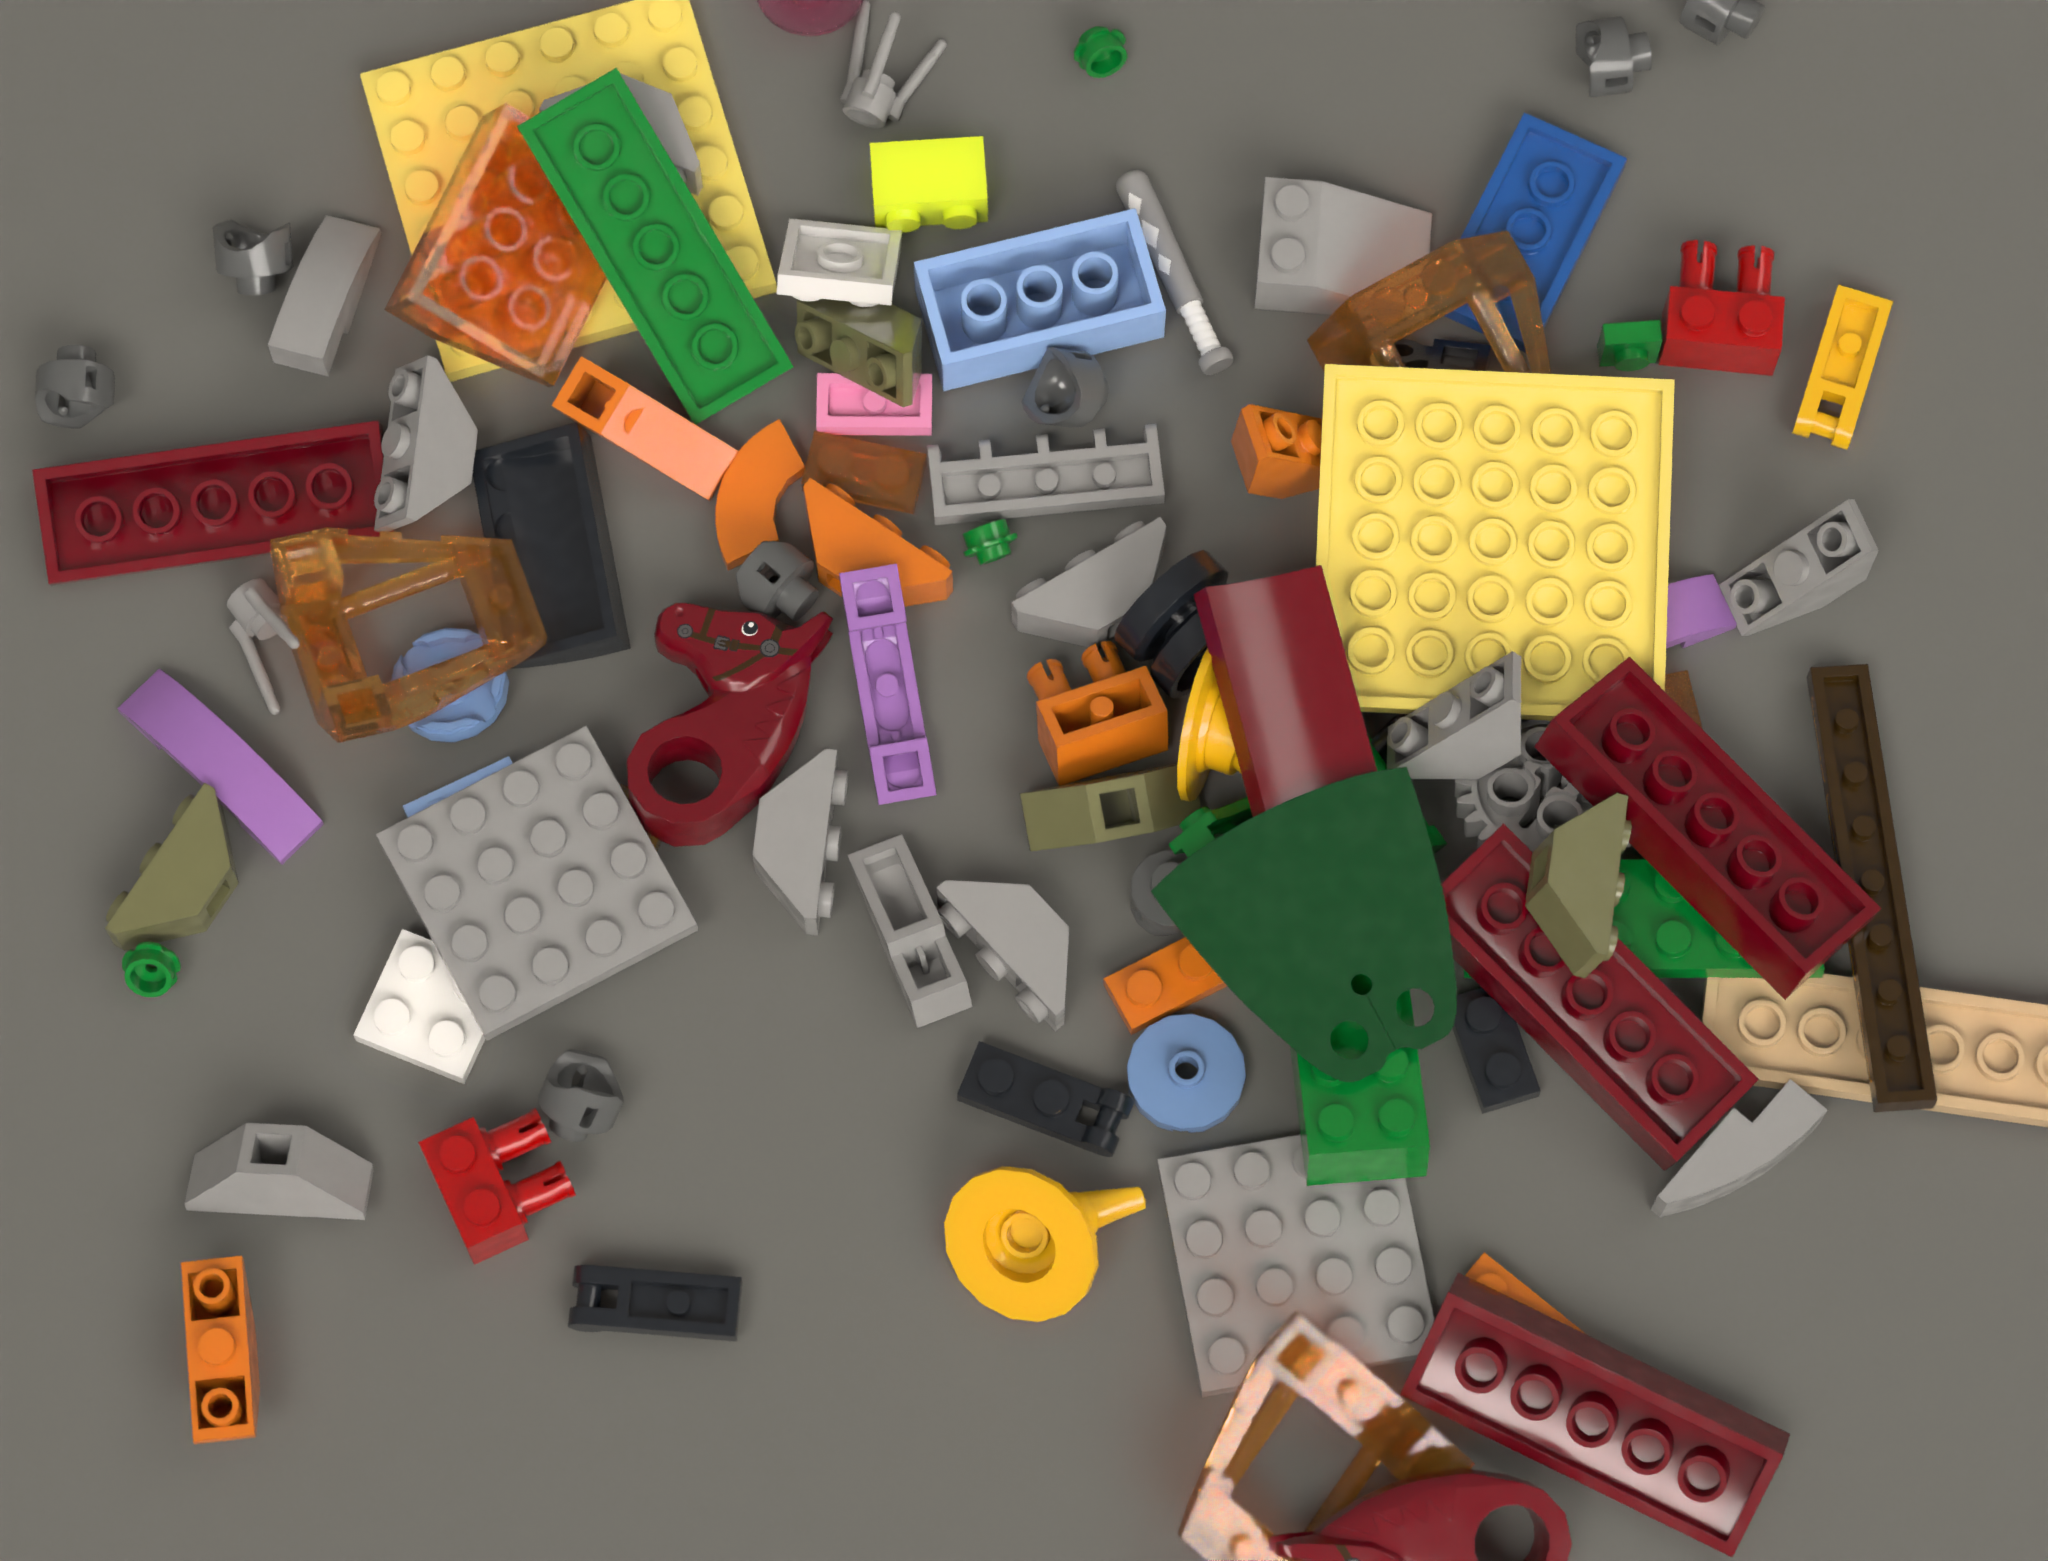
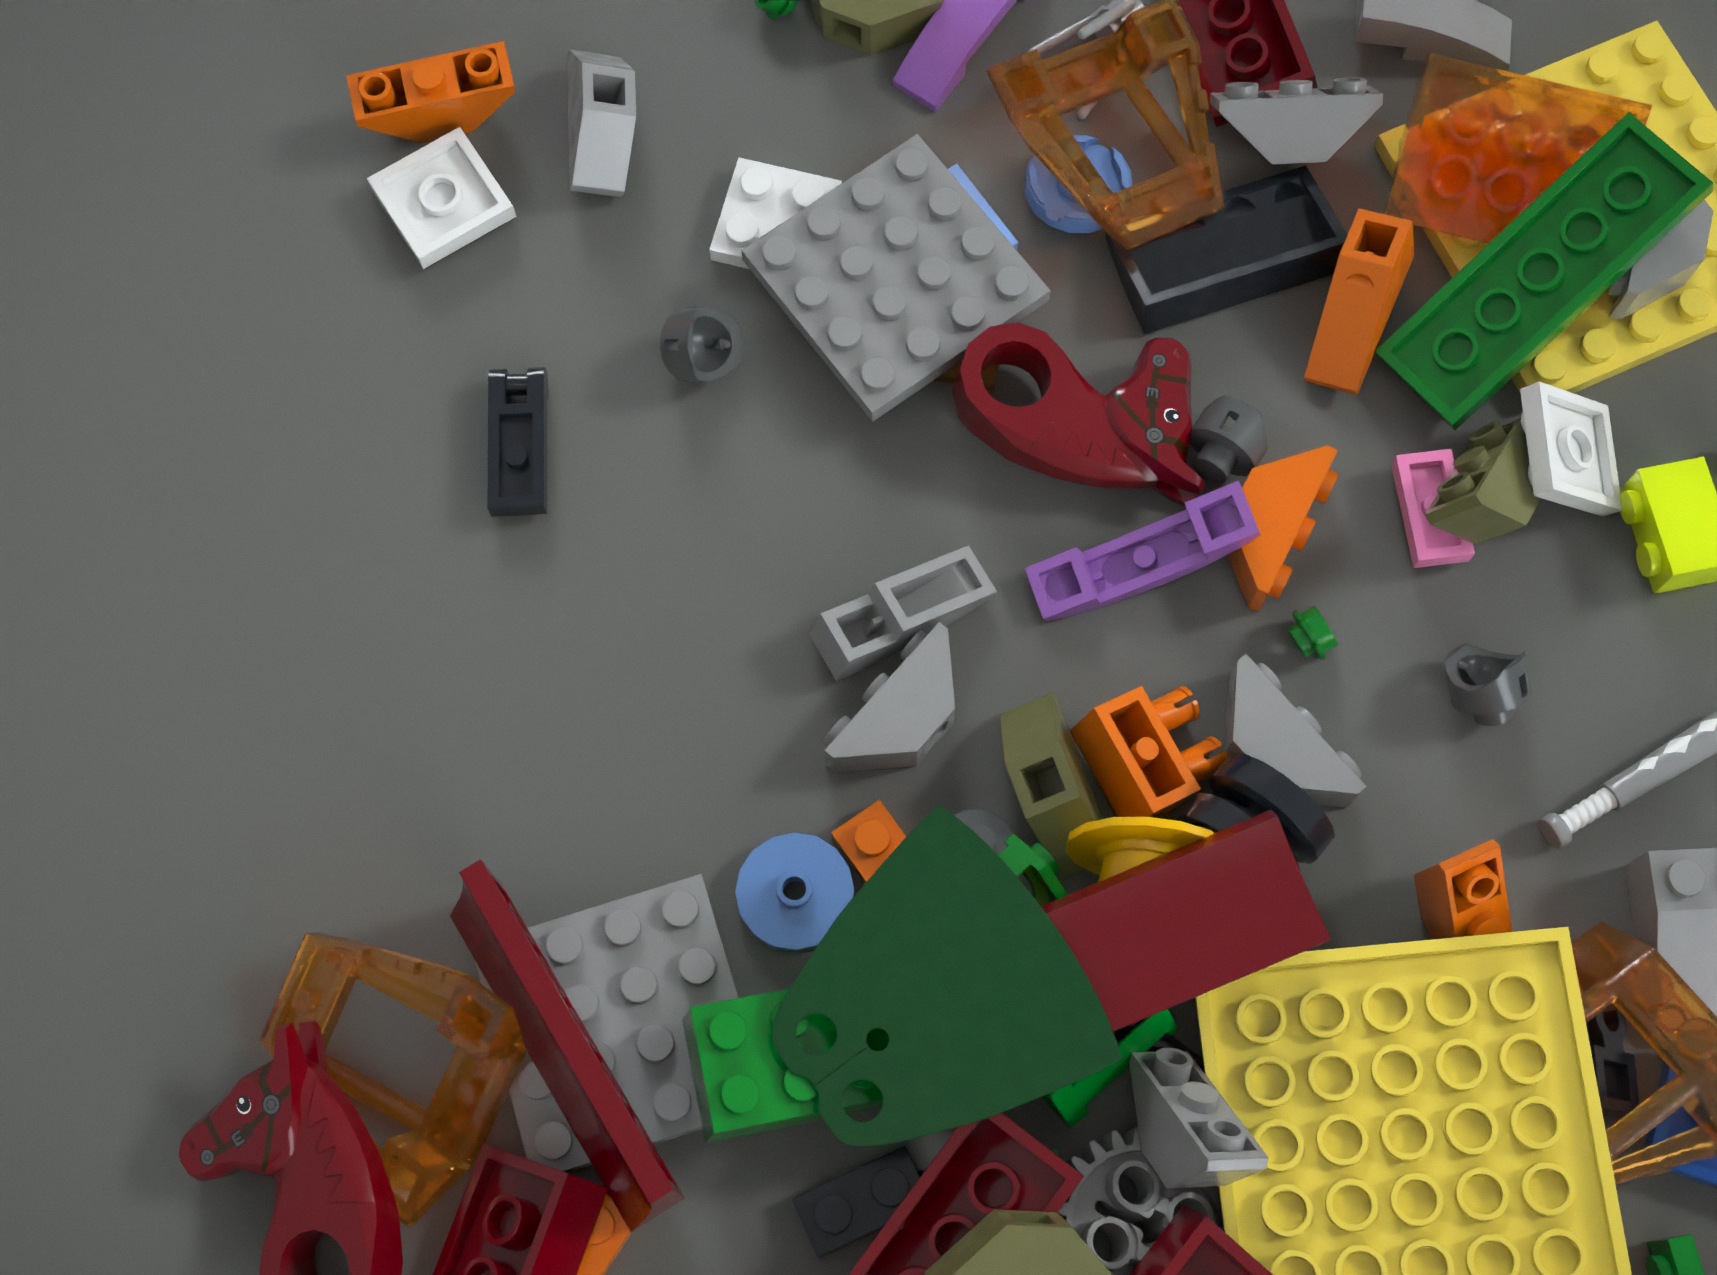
camera: 85 degrees right, 0 degrees up
(345, 1363) = (441, 197): none -> white plate
(484, 1206) = (605, 272): red brick -> none
(752, 491) = (1321, 415): orange tile -> none
(798, 838) = (976, 498): light grey slope -> none
(867, 471) = (1362, 512): clear orange plate -> none
(1029, 1241) = (601, 761): yellow piece -> none
(1043, 1099) = (752, 759): black plate -> none
(1046, 480) = (1389, 681): light grey hinge -> none
(1061, 287) = (1586, 644): light blue brick -> none
(1328, 1288) = (563, 1050): none -> dark red arch

